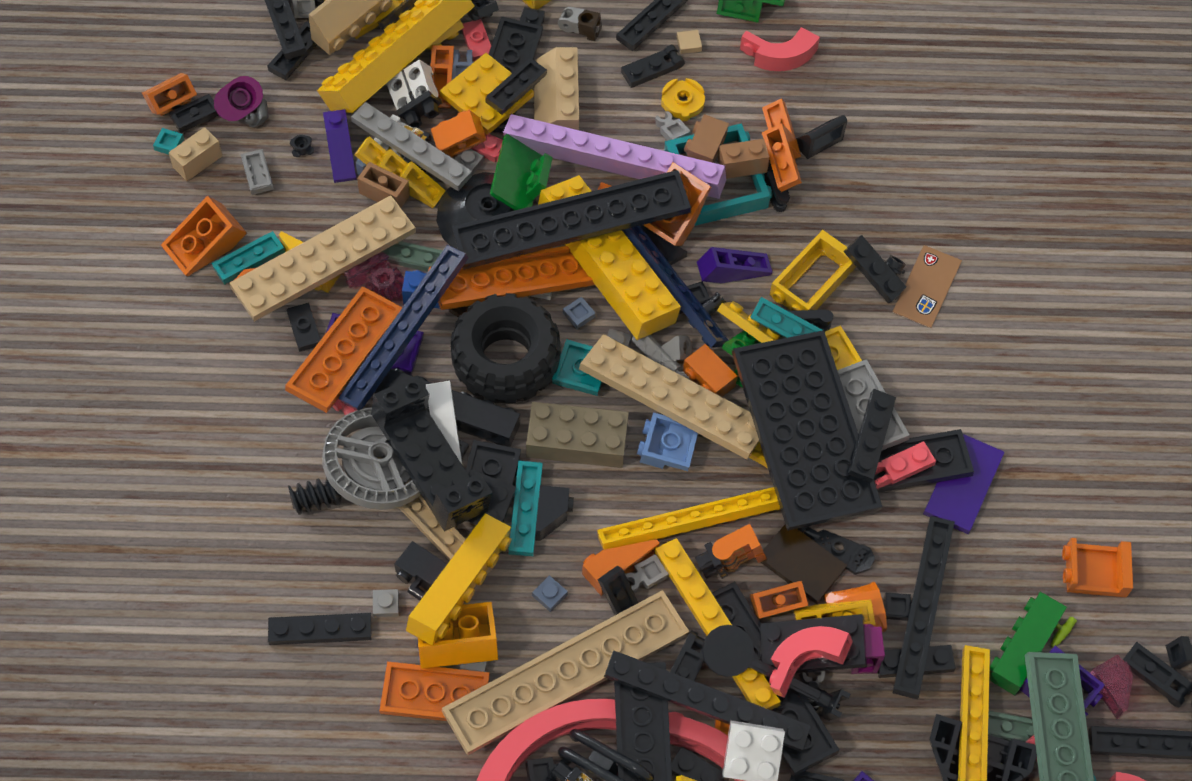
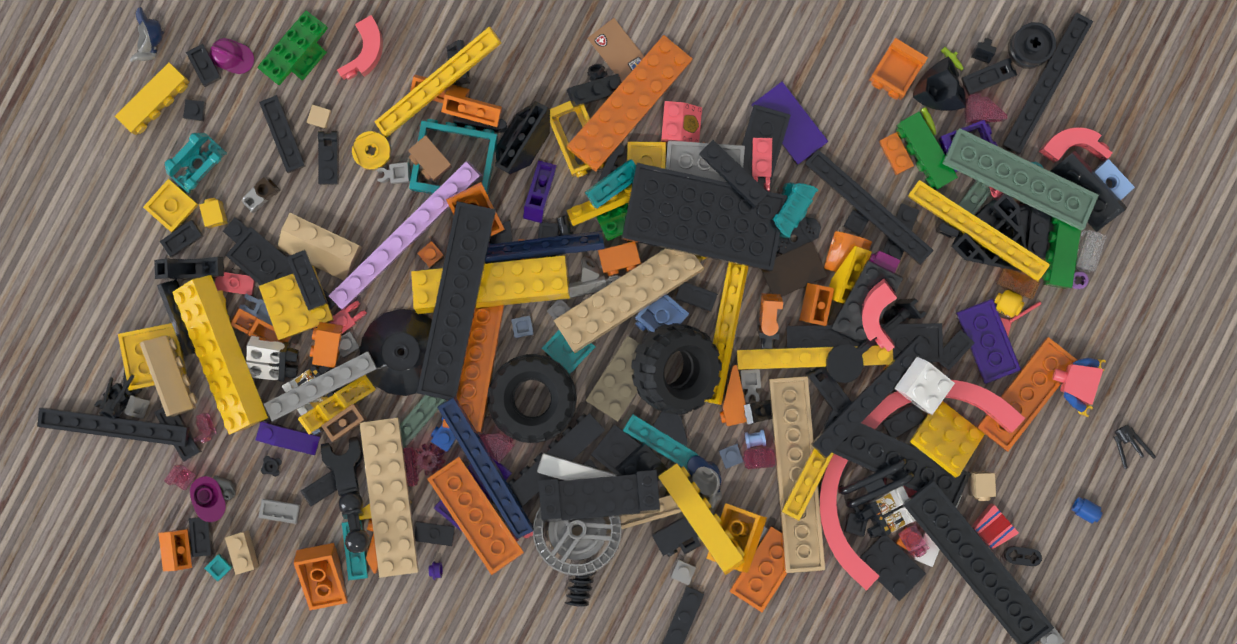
camera: 55 degrees left, 25 degrees up
(250, 64) = (180, 476): none -> clear pink bracket
(263, 344) = (436, 570): none -> dark purple plate
(301, 199) = (320, 489): none -> black plate
(313, 216) = (347, 484): none -> black piece
(314, 72) = (206, 426): none -> clear pink bracket
(433, 341) = (497, 445): none -> clear pink slope
(510, 574) = (707, 478): none -> light grey hair
(519, 174) = (387, 315): green bracket -> none
(562, 680) = (806, 484): none -> yellow plate
(563, 619) = (759, 458): none -> clear pink gear
(584, 608) = (755, 439): none -> light blue bush
(657, 477) = (698, 375): none -> black tyre
(712, 472) = (696, 296): none -> black plate
(744, 158) = (459, 139): medium nougat brick -> none
(781, 227) = (523, 138): none -> black wedge
(791, 118) = (438, 82): none -> yellow tile
(872, 521) = (795, 208): none -> teal piece
(882, 306) = (629, 103): none -> orange plate
(895, 366) = (681, 122): none -> coral slope
(950, 707) = (947, 231): none -> black tile
(1003, 613) = (896, 153): none -> orange plate
(1108, 624) = (940, 87): none -> black brick
(1150, 624) = (957, 63): none -> lime helmet

